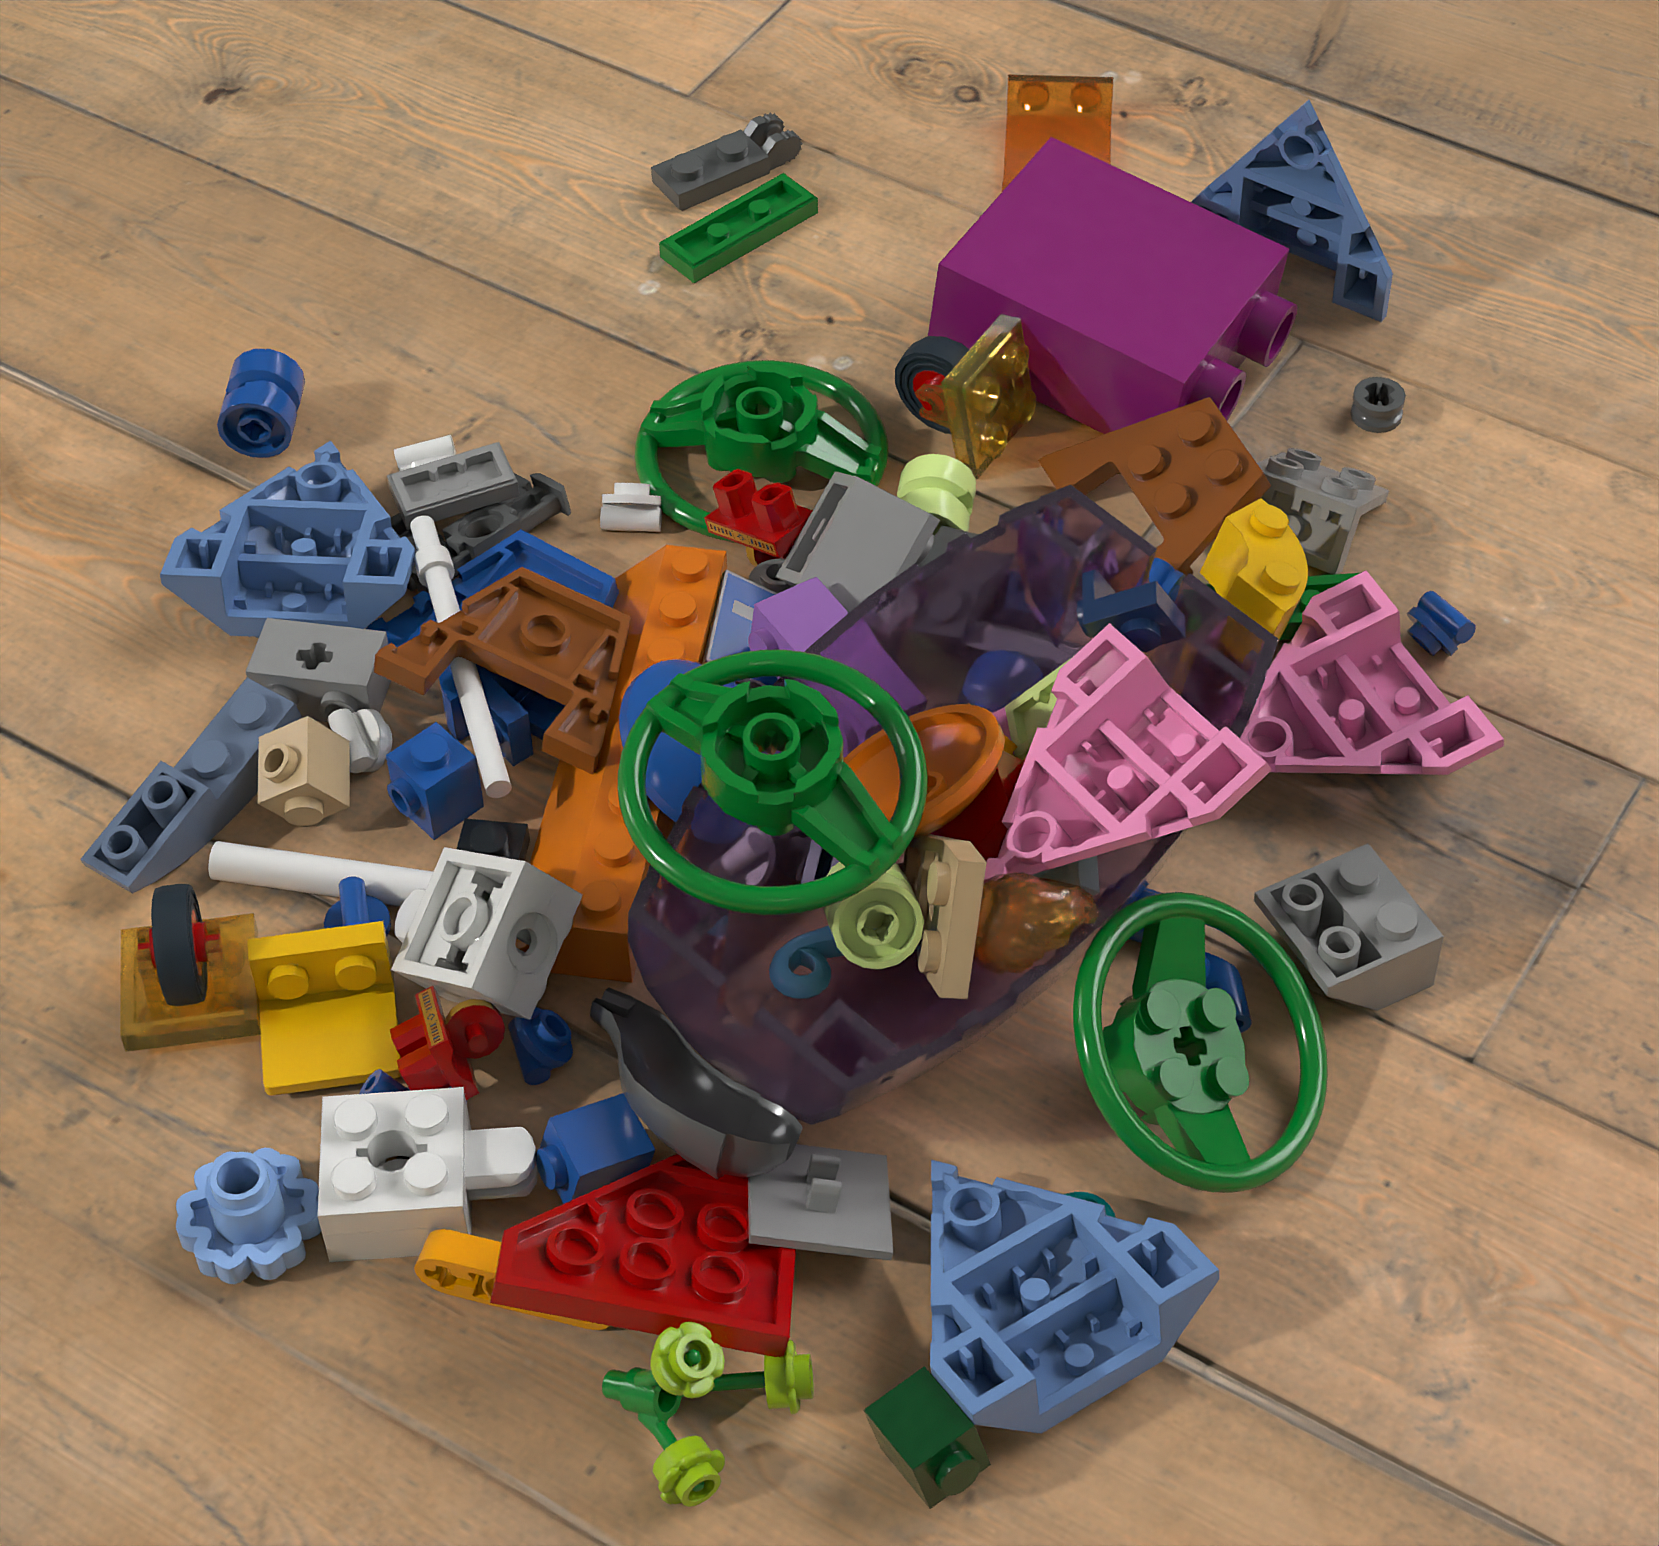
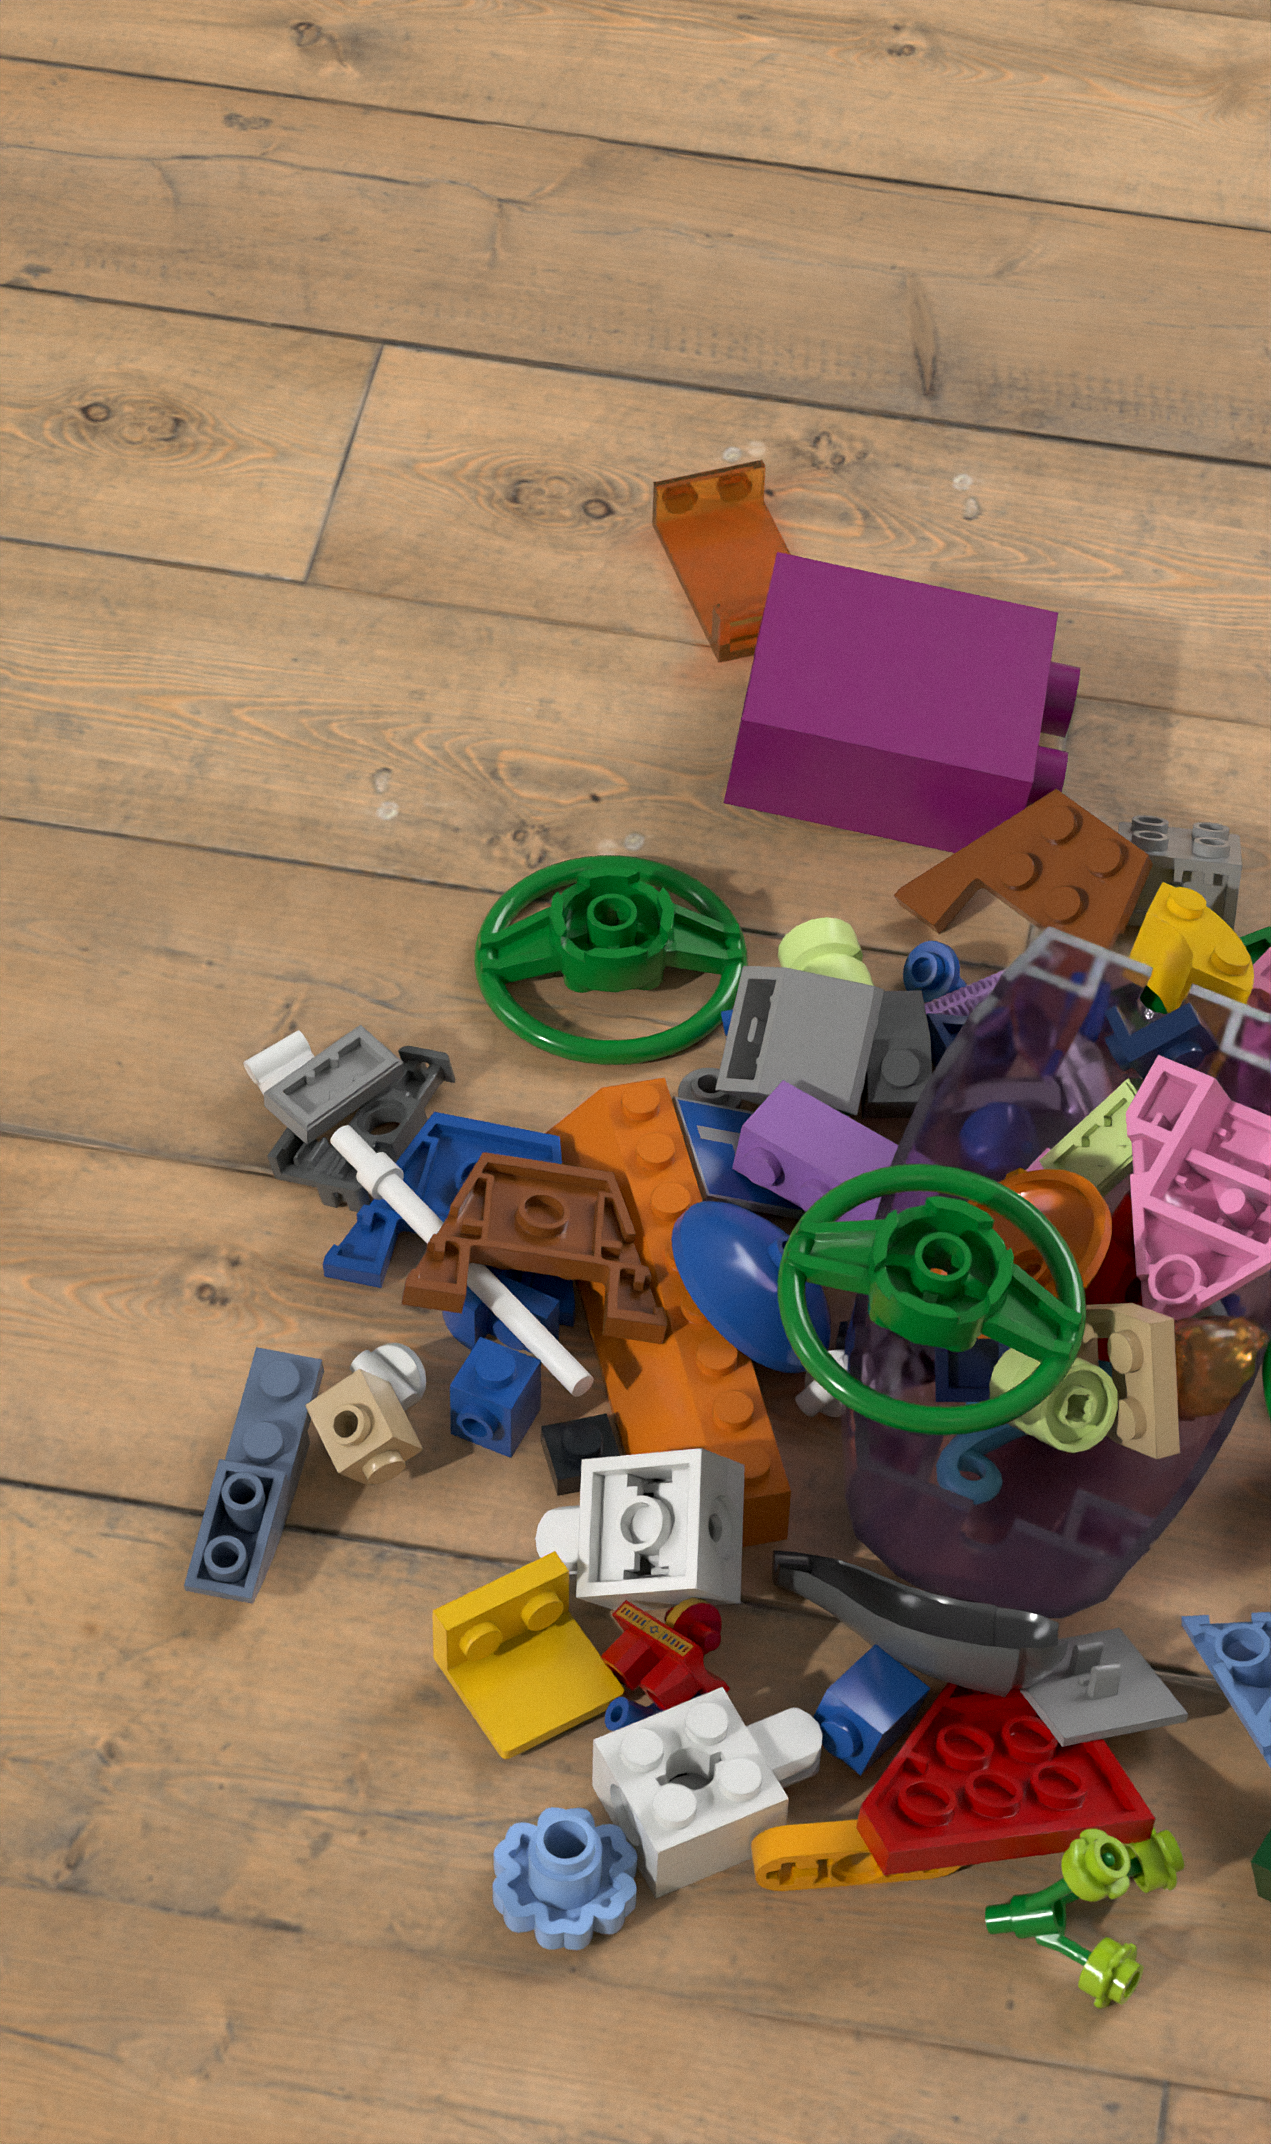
camera: 25 degrees left, 0 degrees up
(186, 975) = (364, 1668): clear yellow plate -> none
(261, 403) = (72, 1049): blue wheel -> none
(294, 550) = (226, 1204): medium blue wedge -> none
(311, 872) = (430, 1526): white piece -> none
(320, 666) = (310, 1313): light grey brick -> none
(356, 906) = (488, 1554): blue plate -> none
(540, 1044) = (747, 1628): blue plate -> none
(631, 509) = (517, 1058): white plate -> none
(726, 162) = (394, 651): dark grey hinge -> none
(738, 228) = (448, 720): green tile -> none
(760, 519) = (677, 1036): red hips -> none
(972, 393) = (798, 841): clear yellow plate -> none
(1301, 198) = (1042, 555): medium blue wedge -> none
(1378, 392) = (1188, 734): dark grey bush -> none

